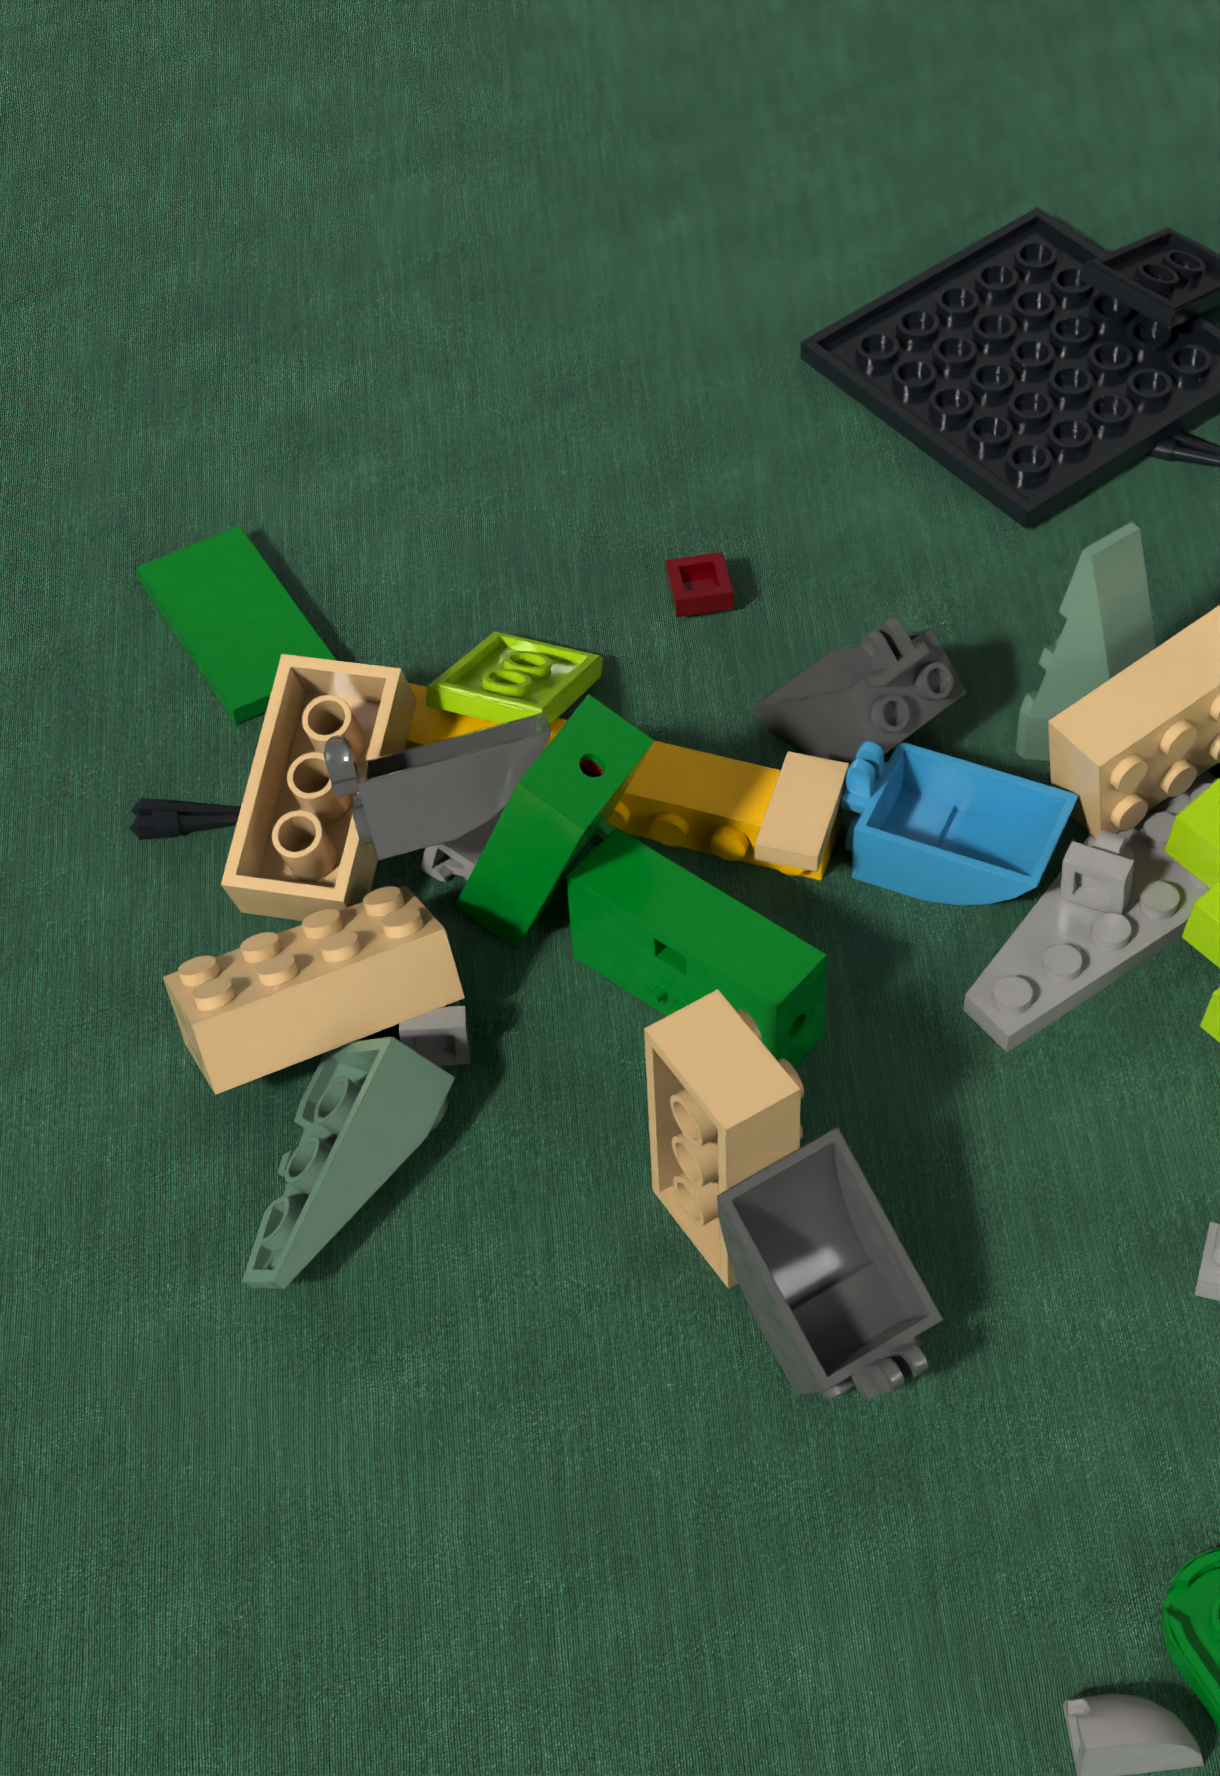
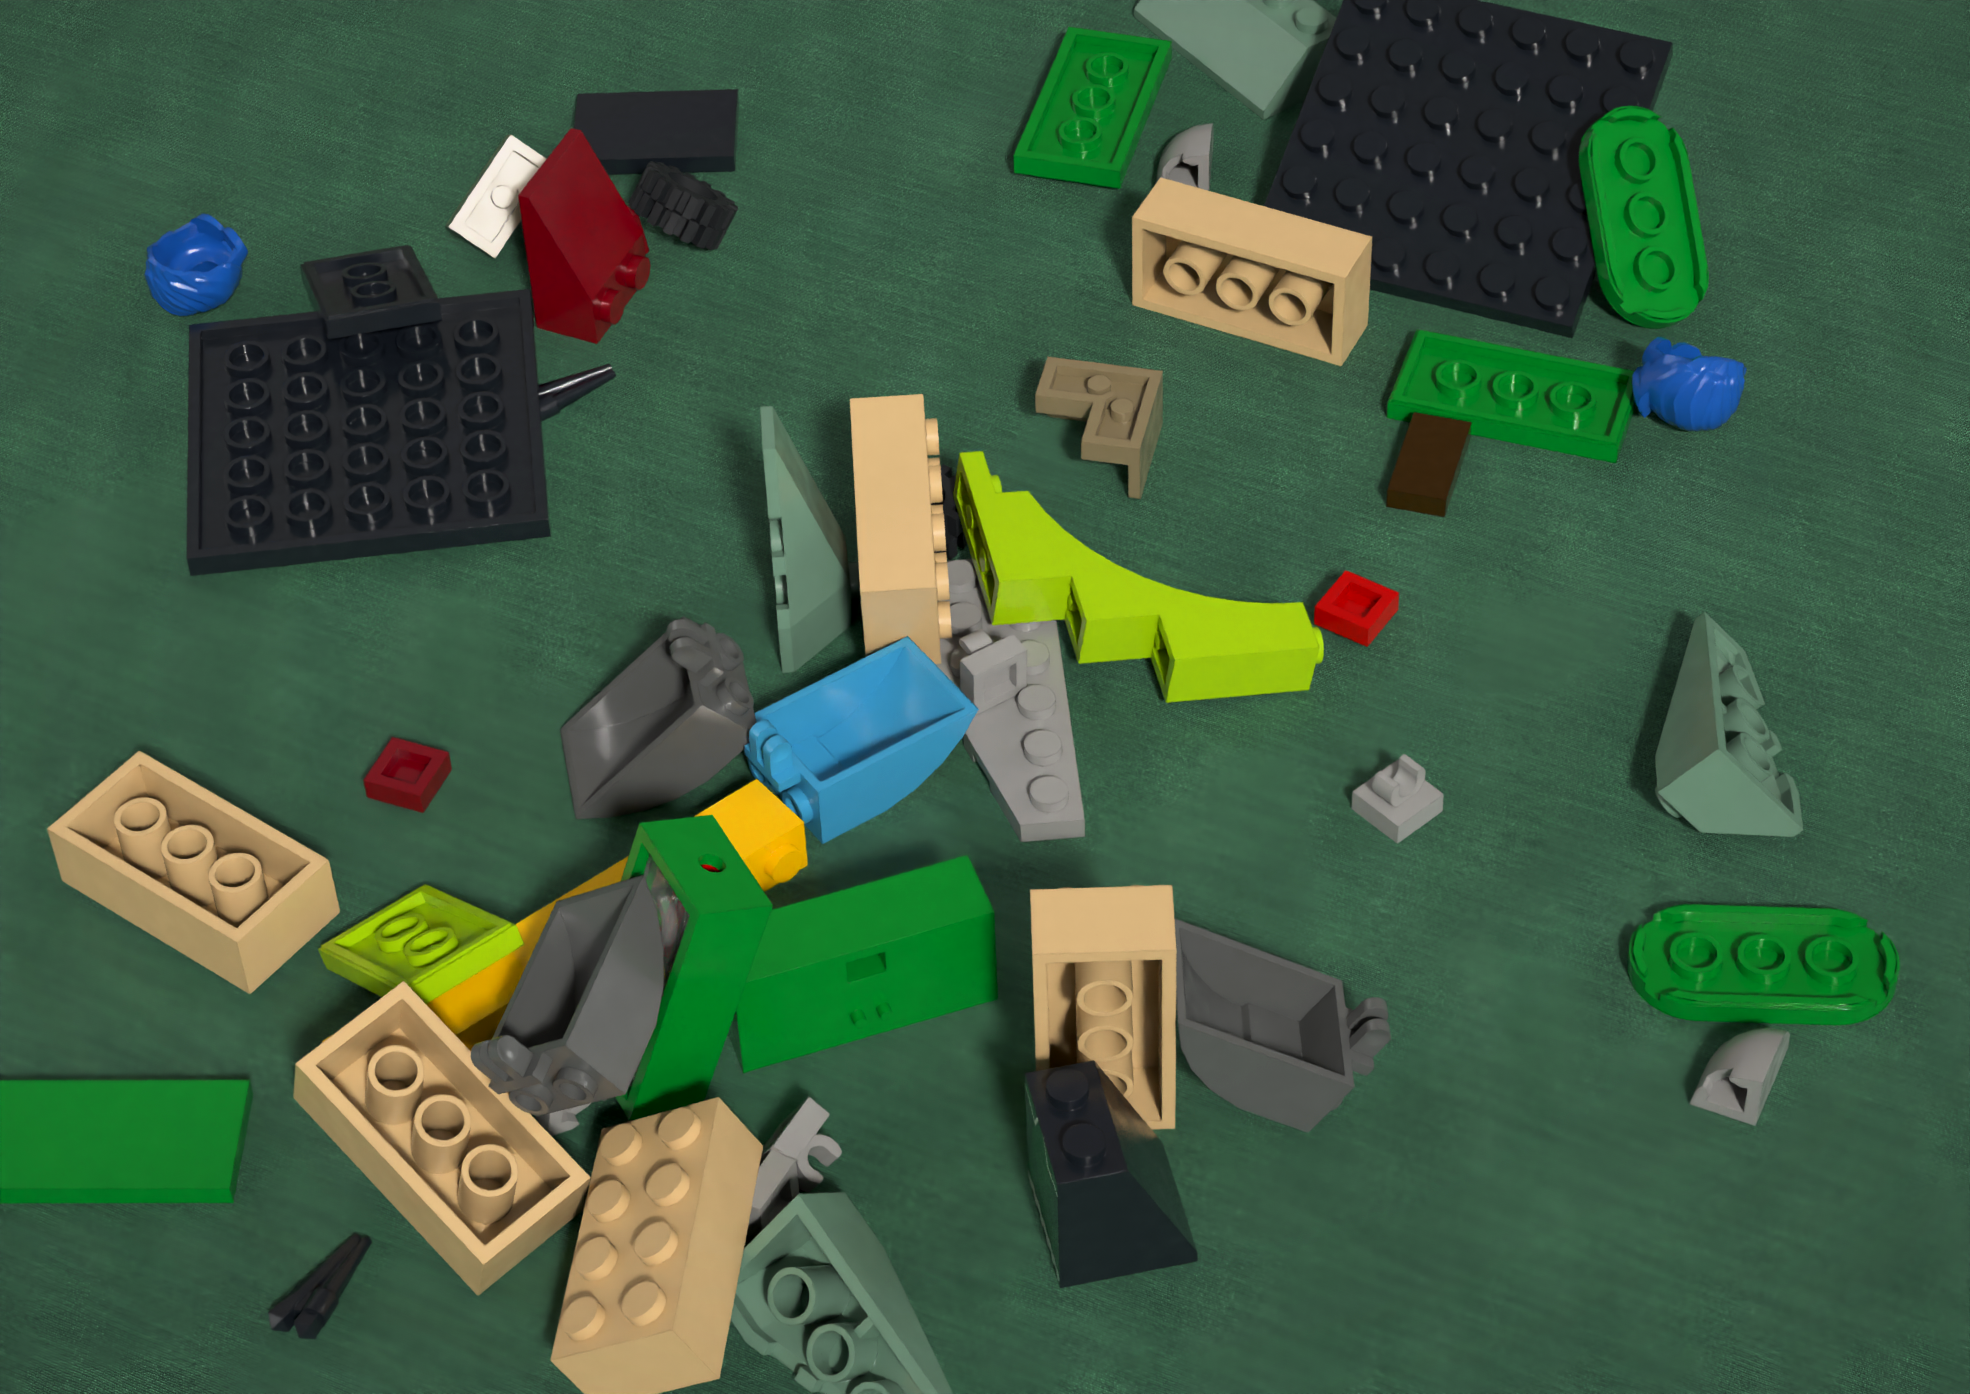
camera: 60 degrees left, 5 degrees down
(494, 519) = (194, 871): none -> tan brick
(500, 1020) = (798, 1139): none -> light grey tile
(587, 1248) = (1100, 1179): none -> black slope
(801, 811) = (770, 814): tan tile -> none
(1094, 173) = (195, 266): none -> blue hair

